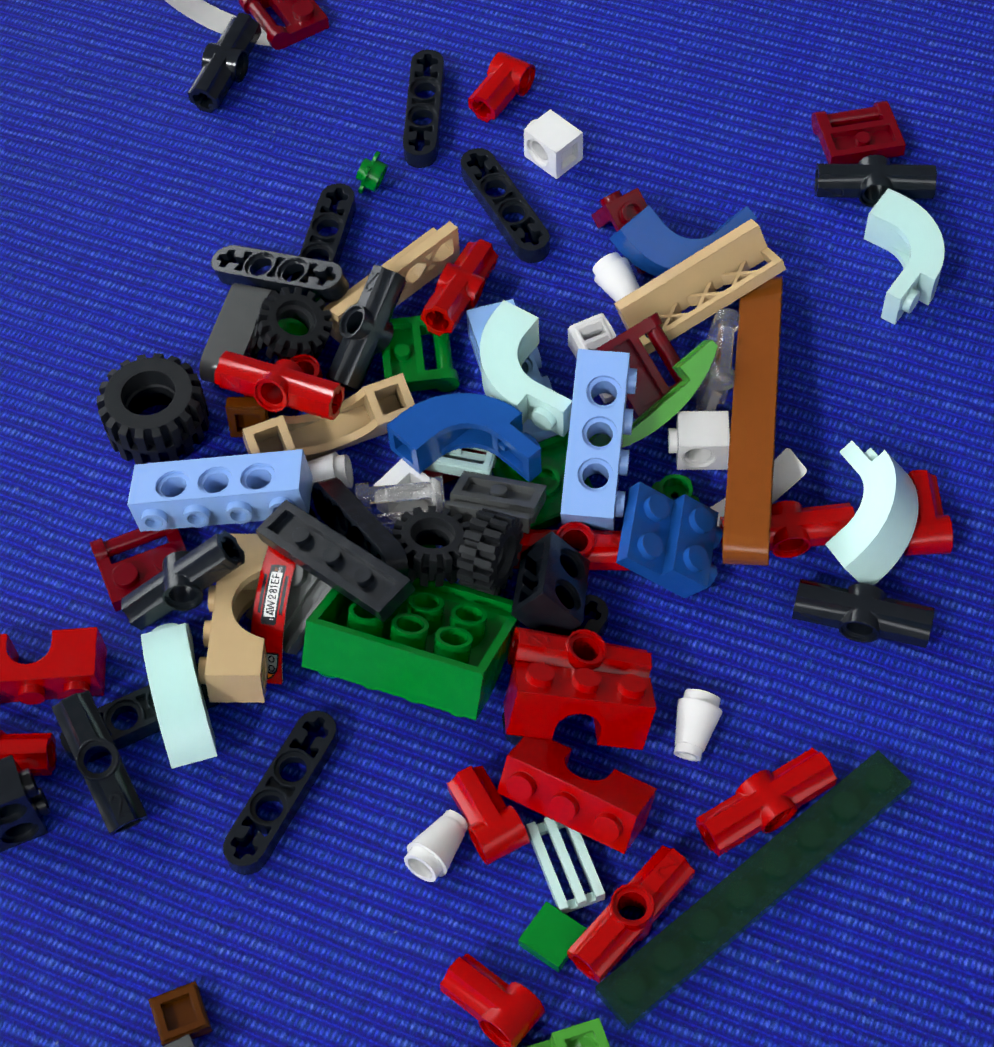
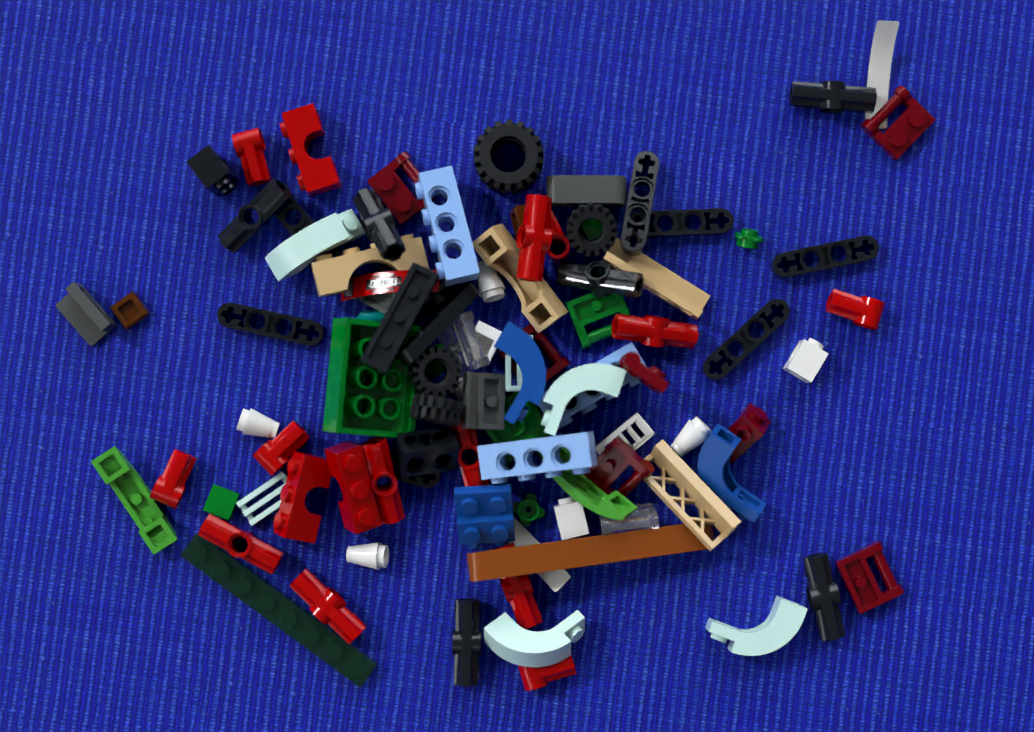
camera: 70 degrees right, 30 degrees up
(524, 273) = (650, 377): none -> dark red plate

